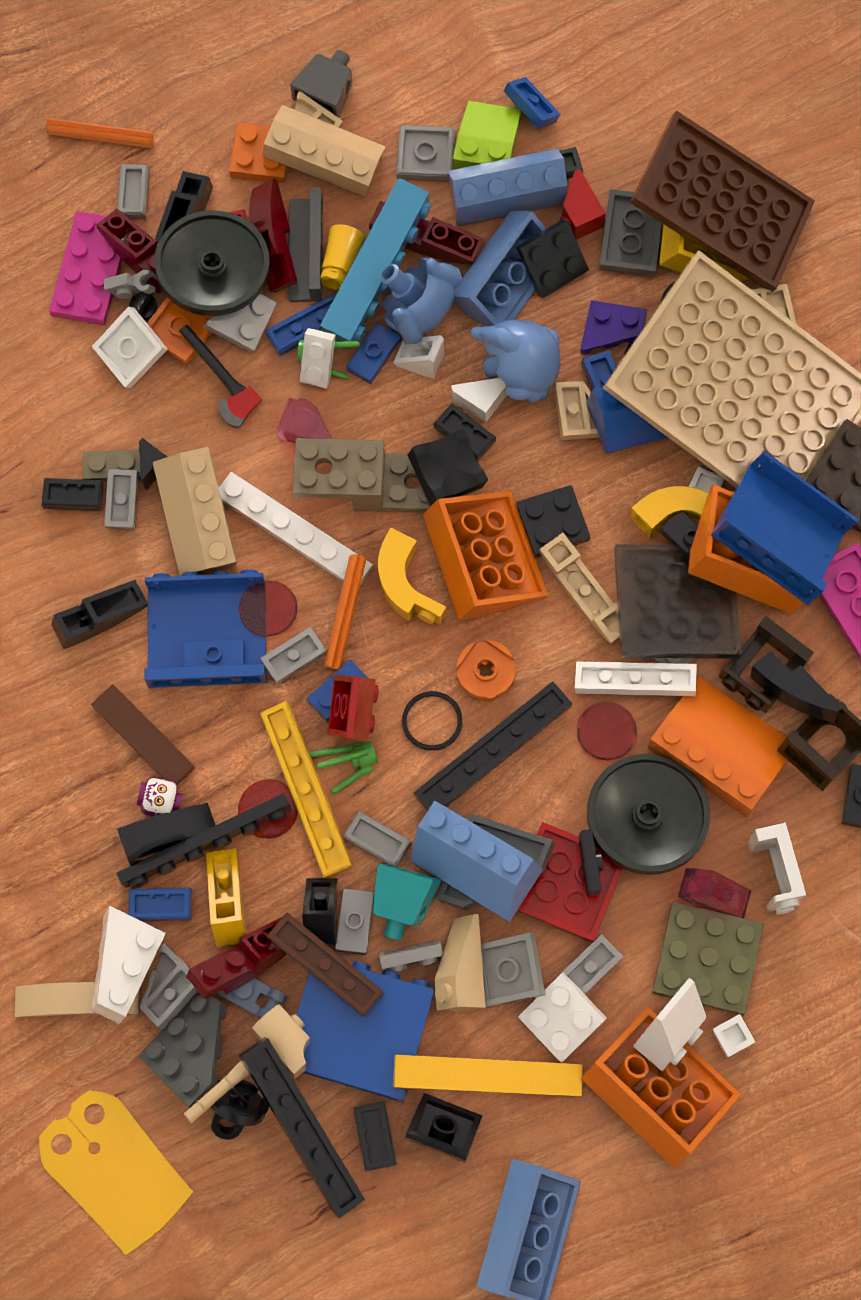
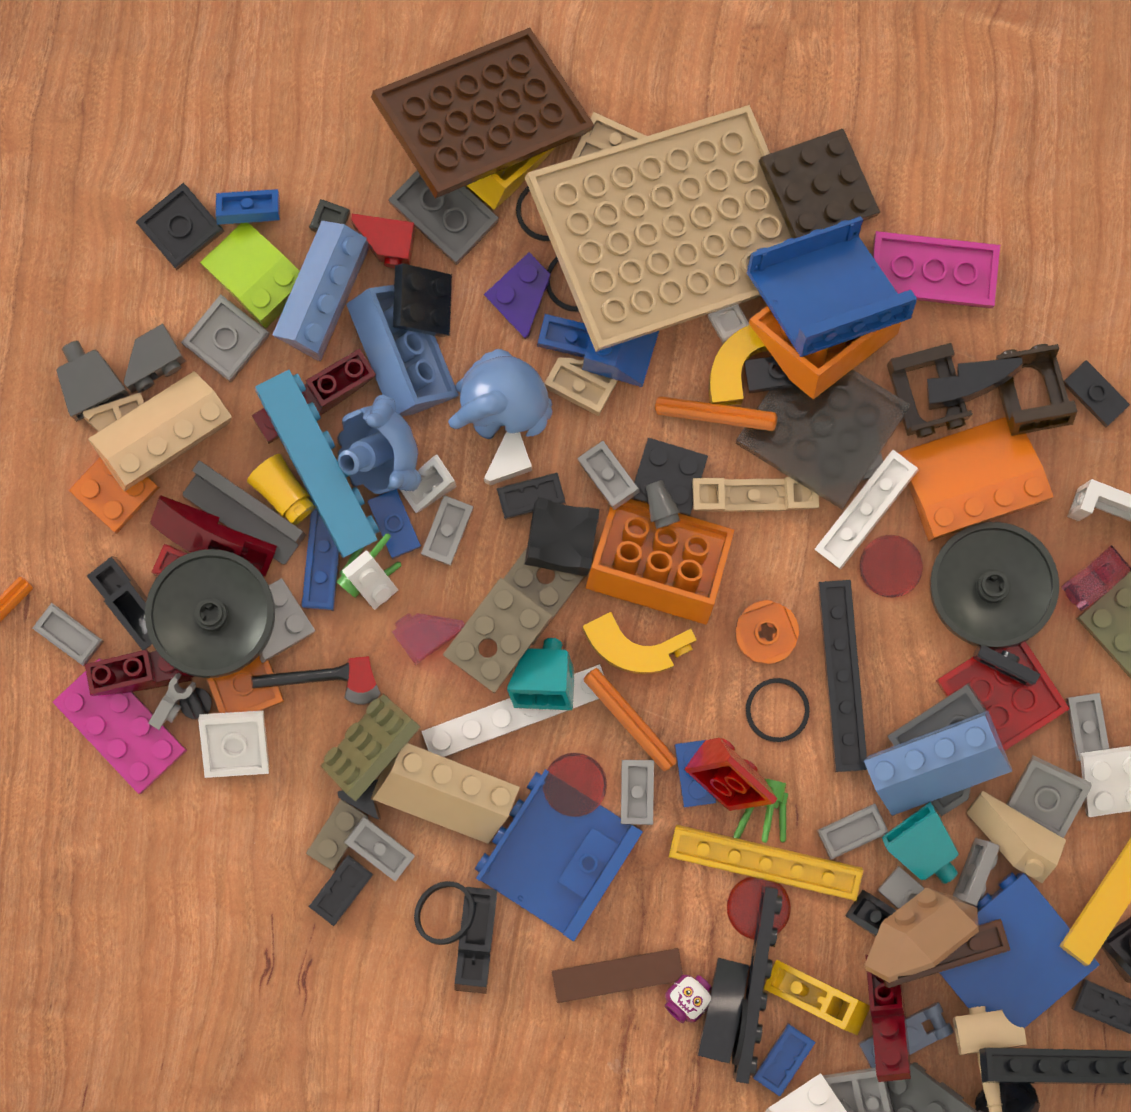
camera: 60 degrees left, 10 degrees up
(82, 588) = (423, 898): none -> black piece
(190, 433) = (369, 746): none -> olive plate
(327, 929) = (921, 935): none -> medium nougat wedge
(330, 526) = (543, 678): none -> teal torso
(373, 112) = (152, 357): none -> dark grey slope
(395, 391) = (447, 530): none -> light grey plate
(483, 71) = (180, 226): none -> black tile
(520, 474) = (608, 475): none -> light grey plate
(523, 525) = (661, 505): none -> dark grey cone
(625, 518) = (716, 413): none -> orange axle

